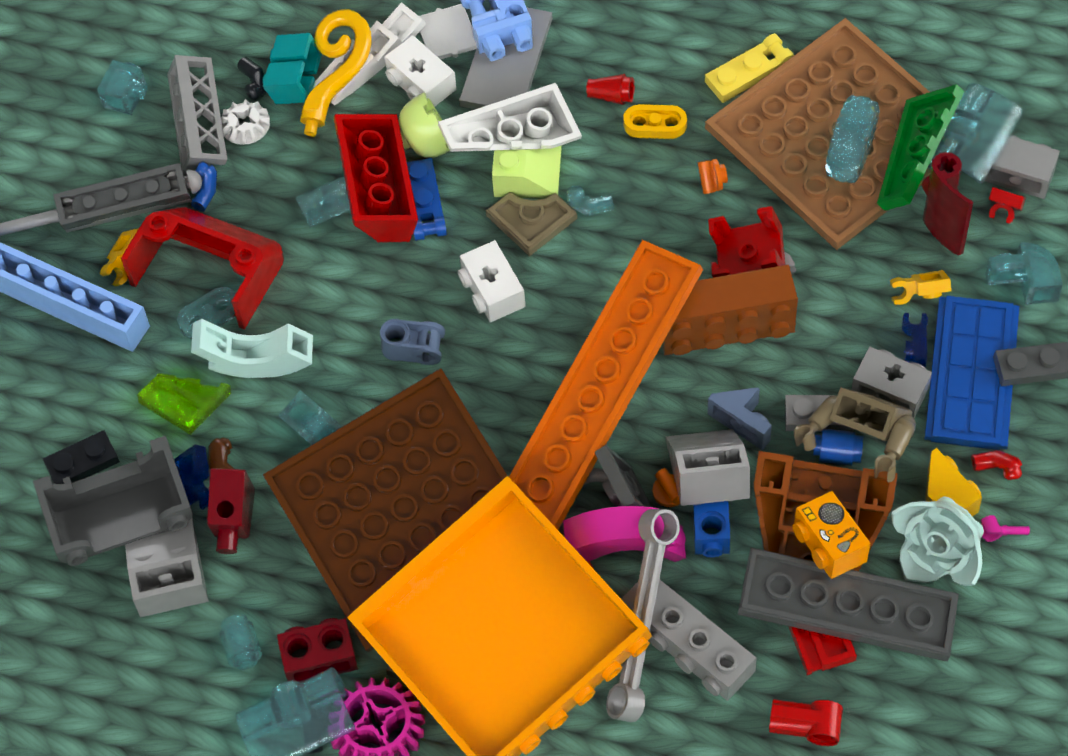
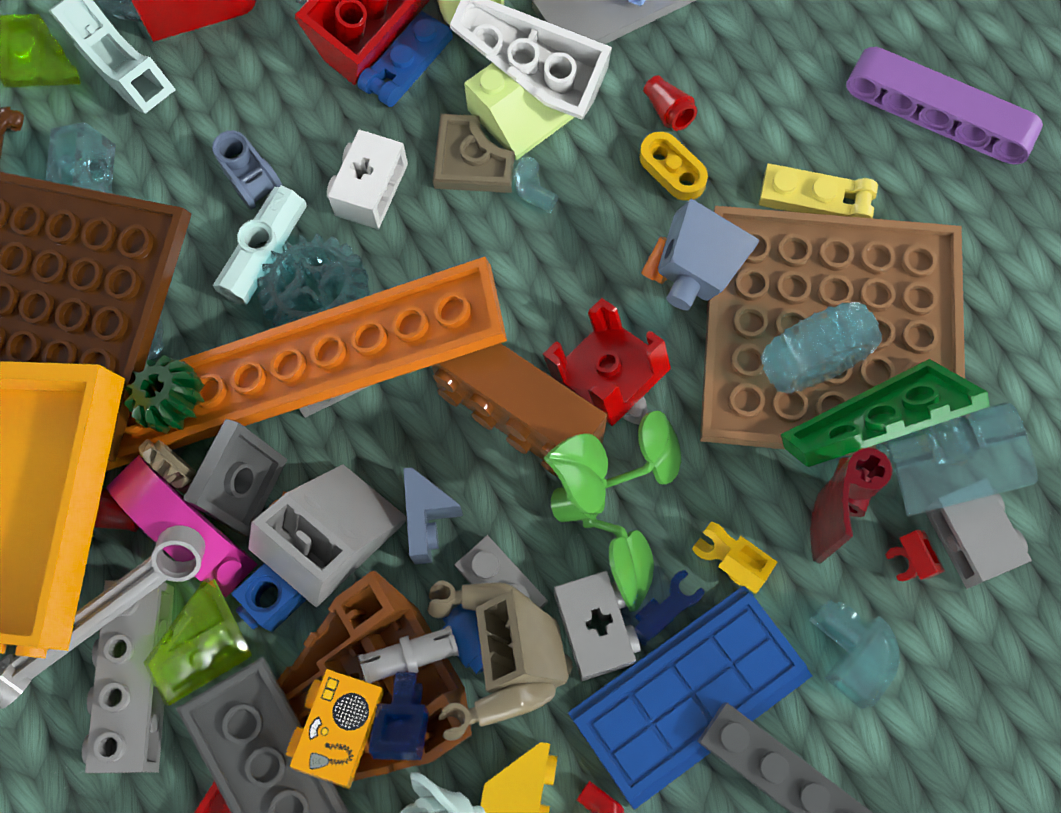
camera: 45 degrees right, 10 degrees up
(482, 385) = (270, 225): none -> light aqua piece
(520, 354) = (324, 265): none -> clear light blue gear
(553, 468) = (164, 394): none -> dark green gear
(584, 503) = (168, 464): none -> dark tan gear
(707, 581) = (197, 645): none -> clear neon green wing
(735, 148) = (702, 254): none -> sand blue torso
(817, 328) = (582, 469): none -> bright green plant
(823, 471) = (408, 655): none -> light grey pin
(860, 500) = (400, 726): none -> clear blue plate

